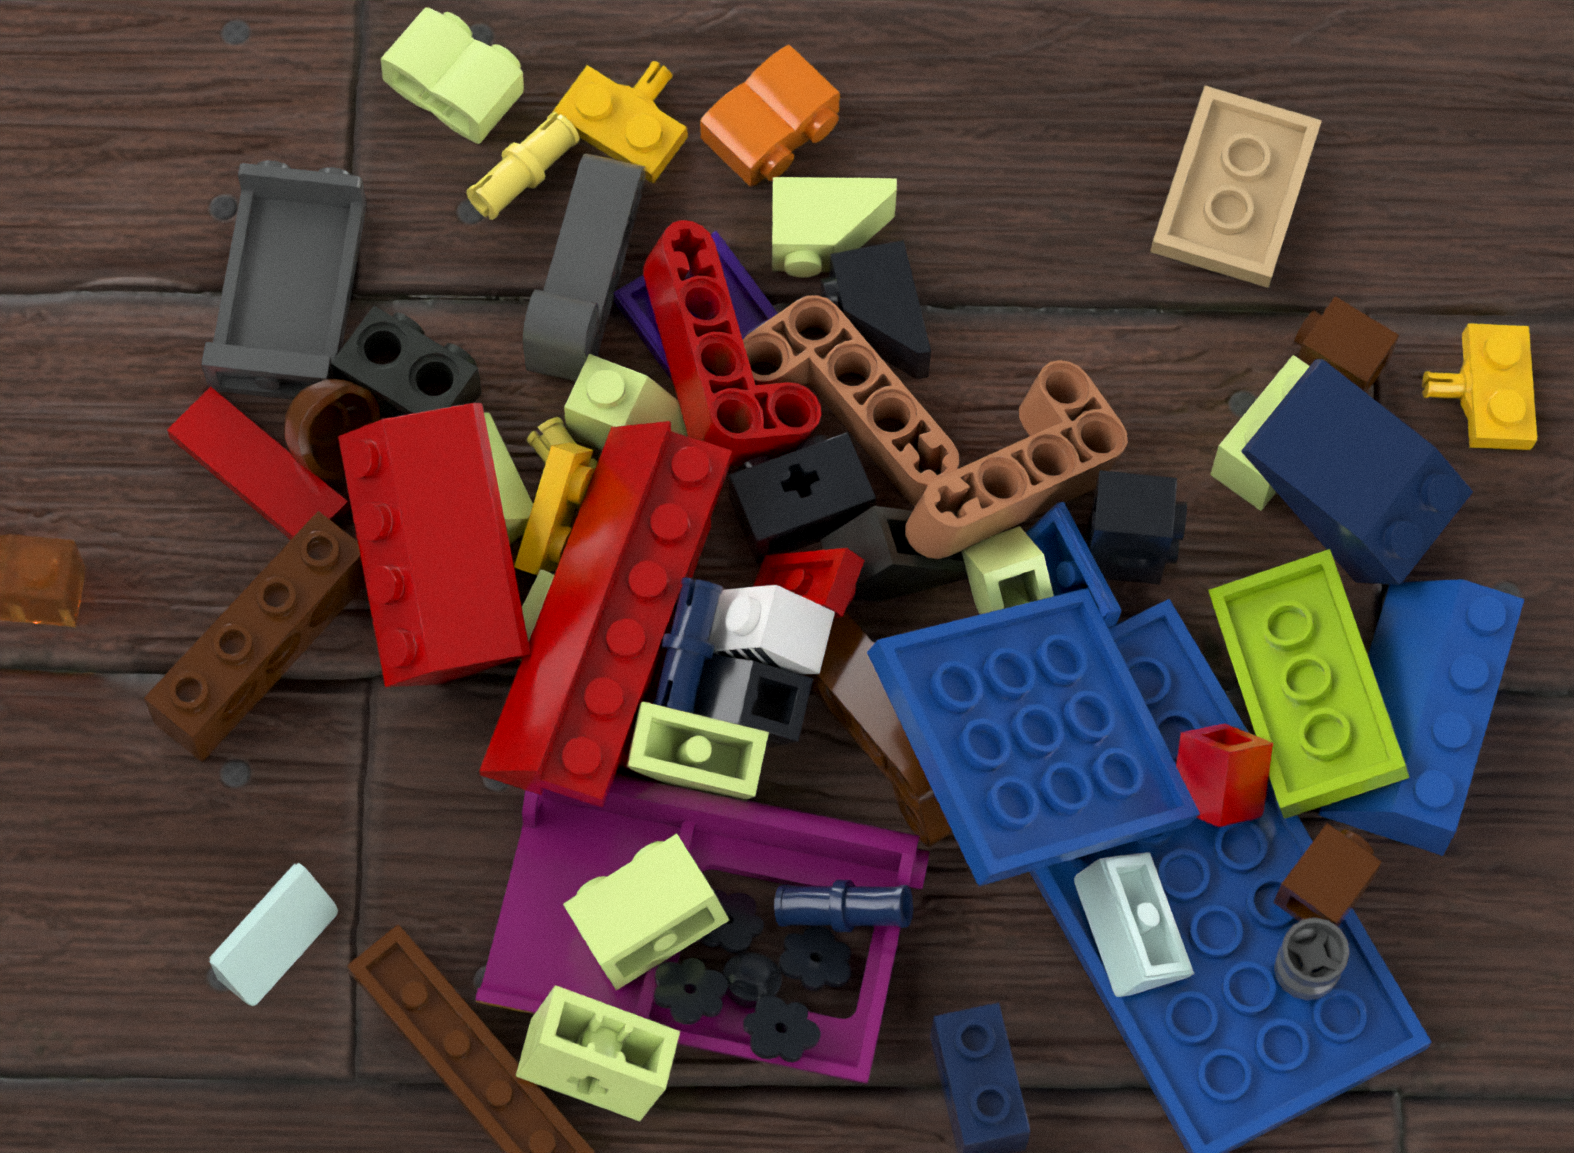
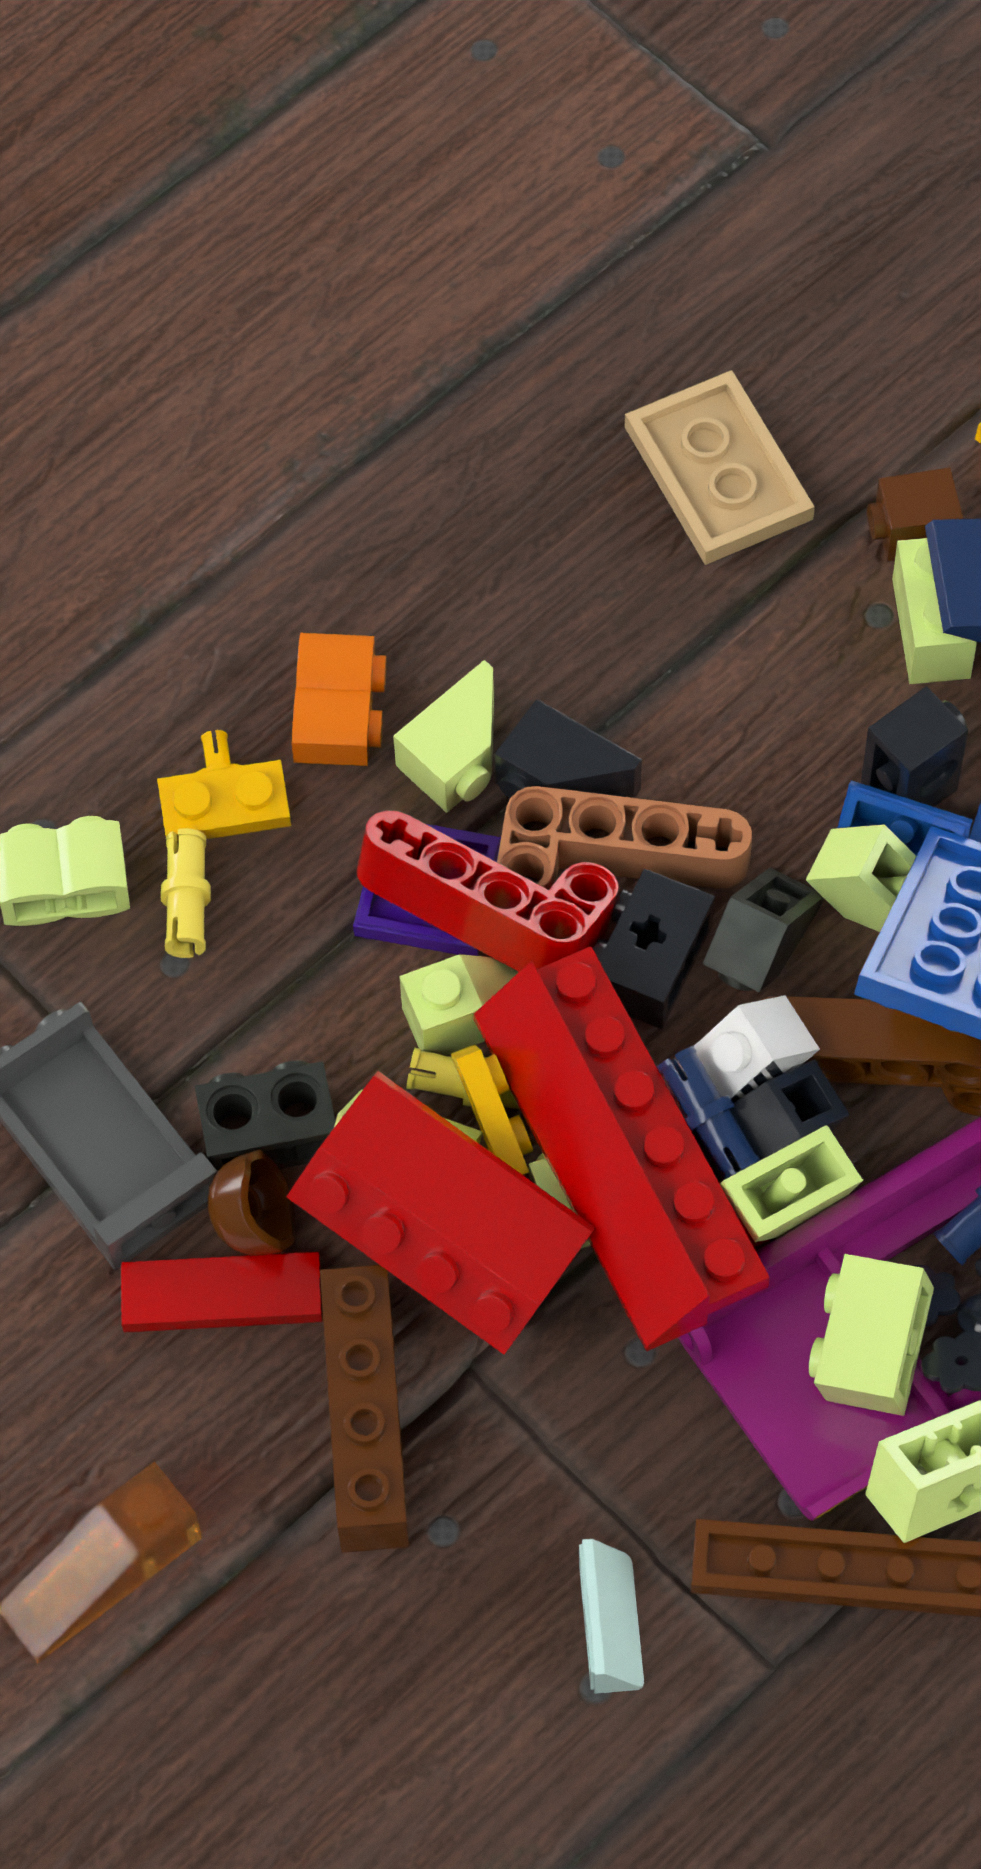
camera: 40 degrees left, 5 degrees down
(573, 309) = (344, 966): dark grey beam -> none
(818, 575) = (741, 979): red plate -> none
(1068, 445) = (807, 740): nougat beam -> none

